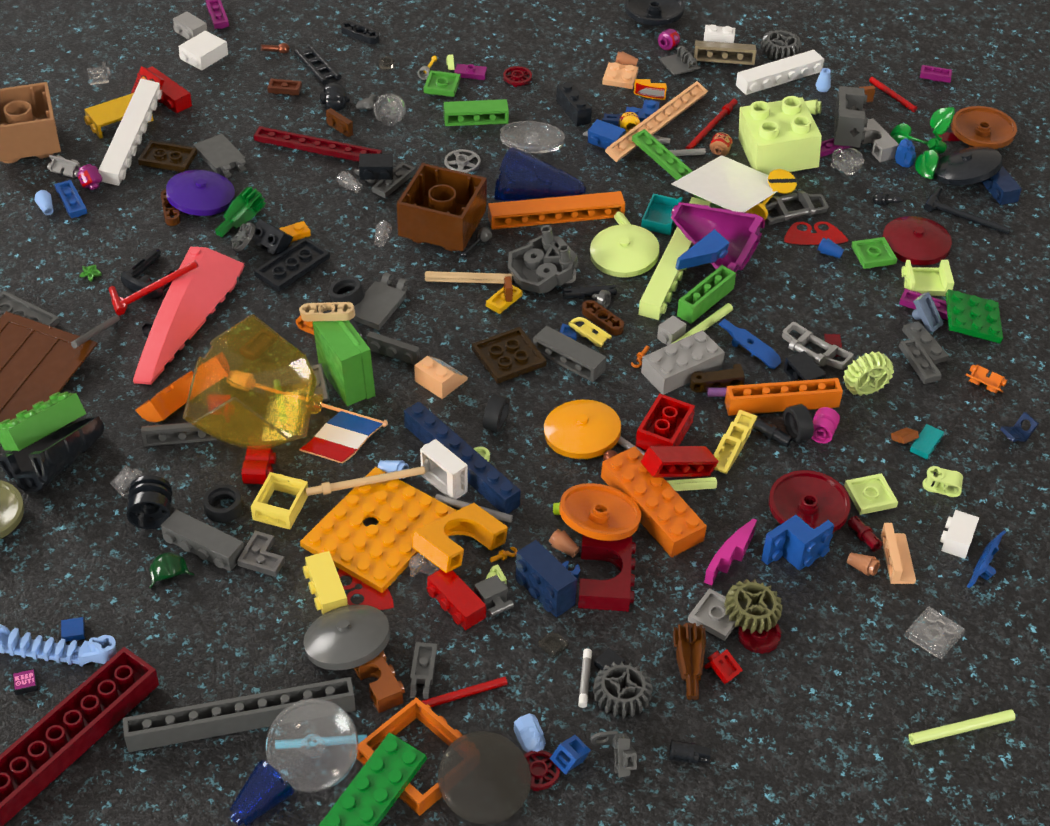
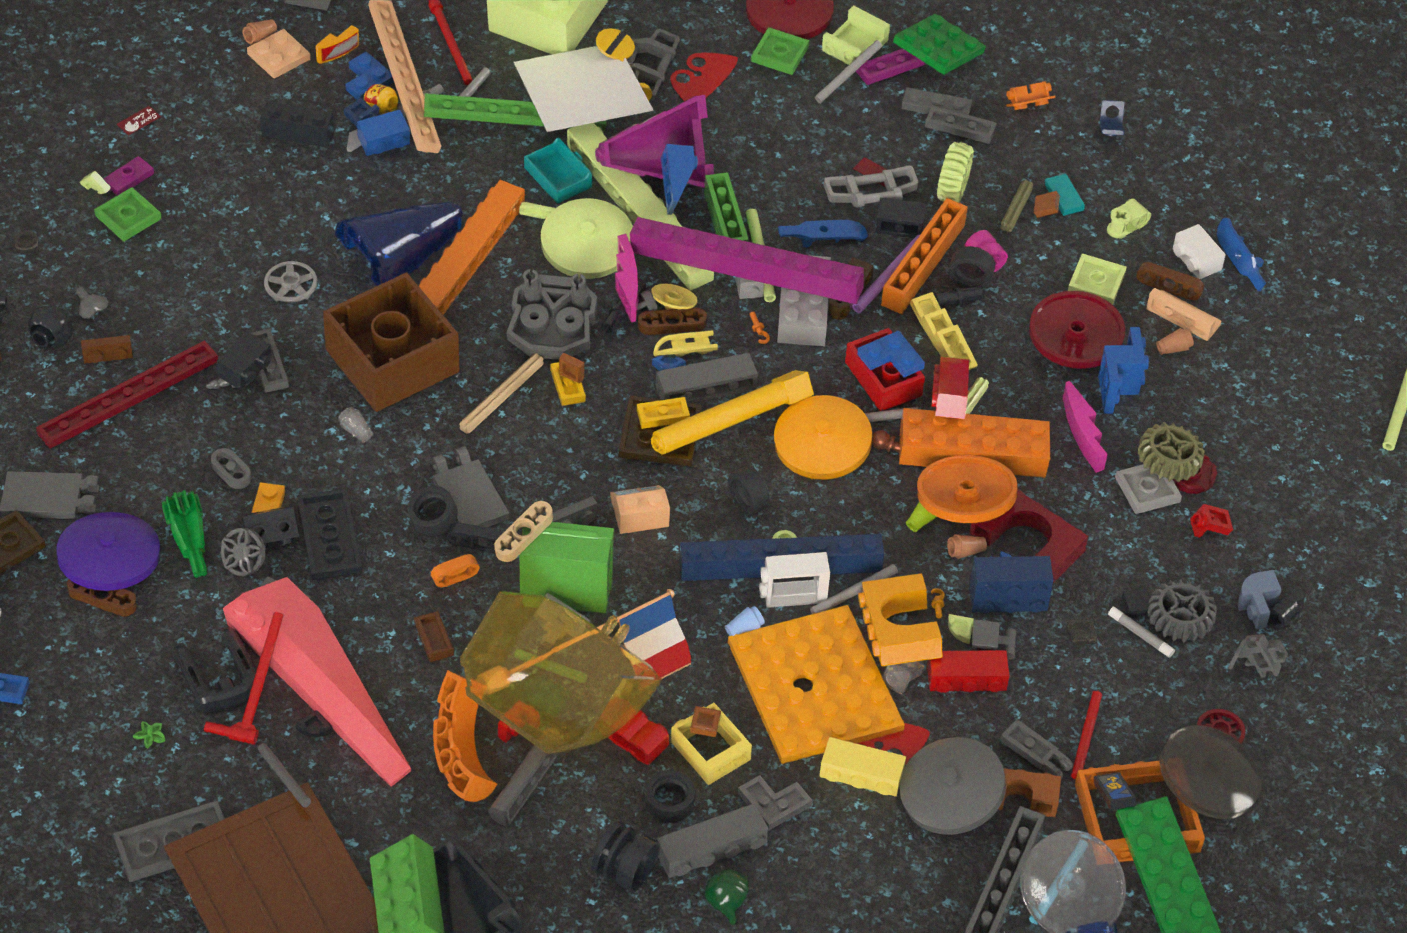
camera: 55 degrees left, 5 degrees up
(124, 479) = (560, 865): clear bracket -> none
(286, 483) = (705, 721): none -> dark orange tile
(302, 205) = (234, 468): none -> dark grey plate
(327, 488) = (734, 690): tan bar -> none
(348, 181) = (229, 402): clear cone -> none
(389, 109) = (137, 288): clear cylinder -> none
(407, 723) = (1115, 791): none -> tile
(426, 69) = (86, 216): light grey hinge -> none
(476, 112) = (219, 217): bright green brick -> none
(515, 56) = (138, 120): none -> dark red sticker
(516, 344) = (662, 412): none -> yellow plate
(517, 76) = (183, 140): dark red wheel -> none
(529, 733) = (1178, 712): light blue rock -> none
(532, 136) = (324, 195): clear dish -> none
(570, 754) = (1229, 694): blue brick -> none
(593, 388) = (783, 390): none -> yellow brick
(603, 277) = (626, 278): none -> dark pink slope
(619, 306) = (674, 296): none -> light yellow dish
(671, 314) = (747, 260): none -> magenta brick
(675, 414) = (892, 349): none -> blue plate
(681, 724) = (1257, 594): none -> sand blue brick
(690, 655) = (1185, 536): reddish brown piece -> none
(721, 144) = (493, 50): nougat head -> none
(830, 248) = (741, 78): blue cone -> none
(865, 533) = (1142, 316): dark red pin -> none
(887, 422) = (1016, 206): none -> olive axle
(894, 287) = (848, 71): none -> light grey bar
(915, 532) = (1179, 278): none -> reddish brown beam
(927, 312) = (907, 72): sand blue tile -> none
(934, 632) = (1288, 349): clear plate -> none

